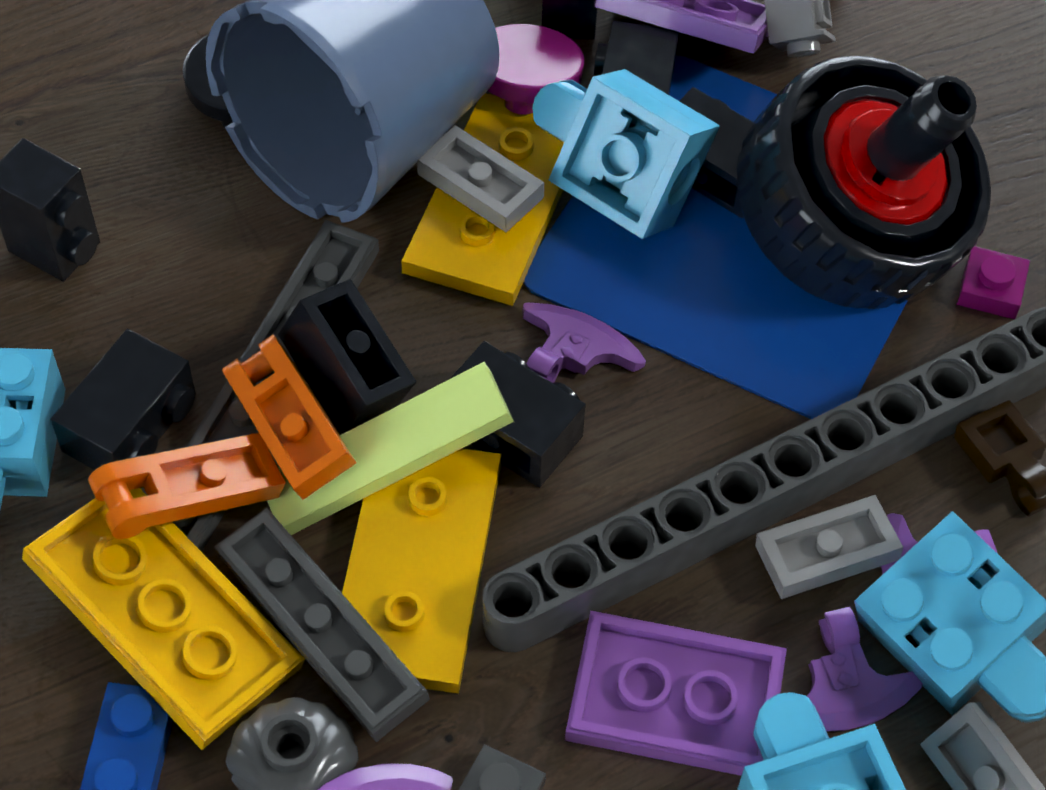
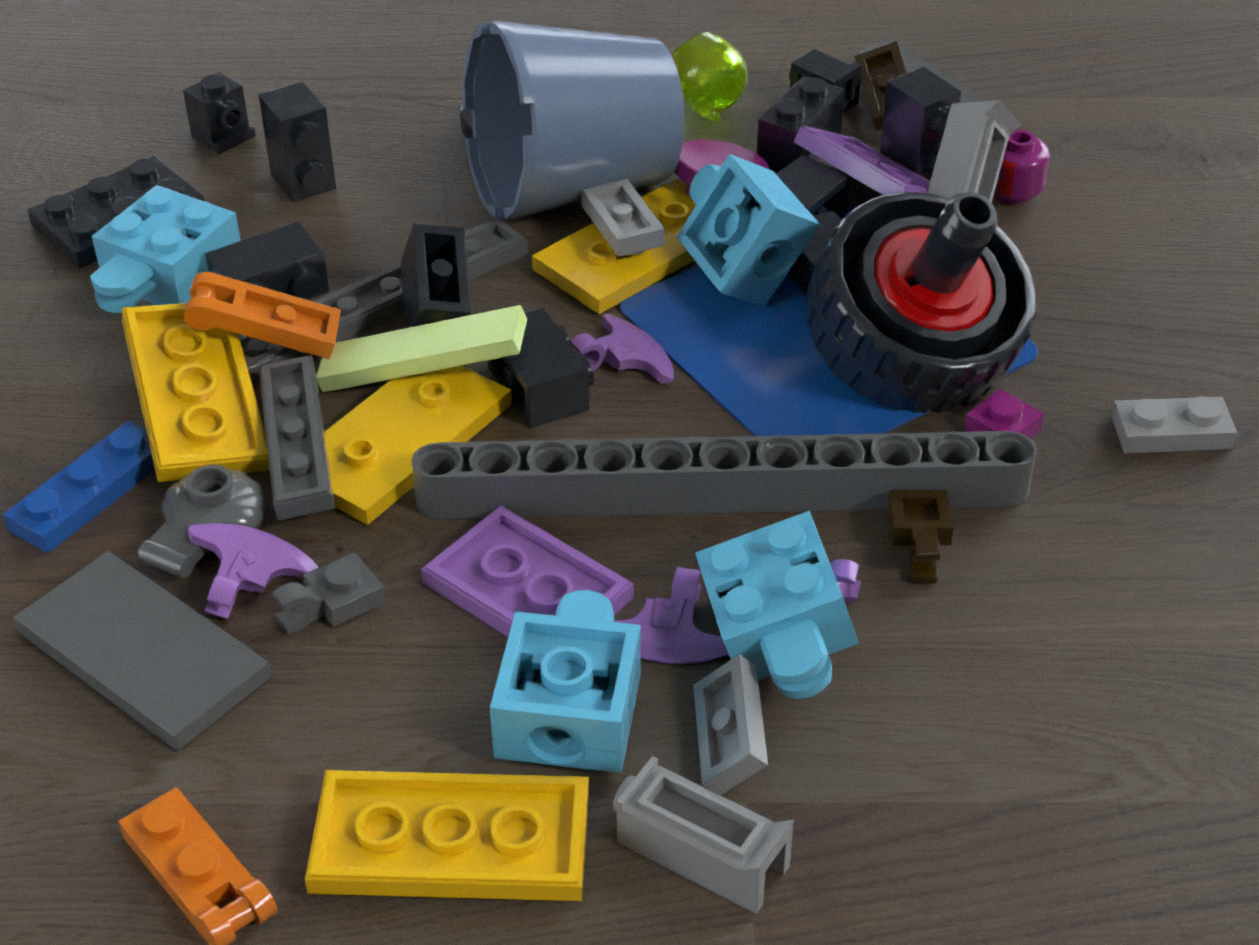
camera: 30 degrees right, 15 degrees down
(289, 418) = (365, 305): orange plate -> none
(828, 546) = (697, 525): light grey plate -> none

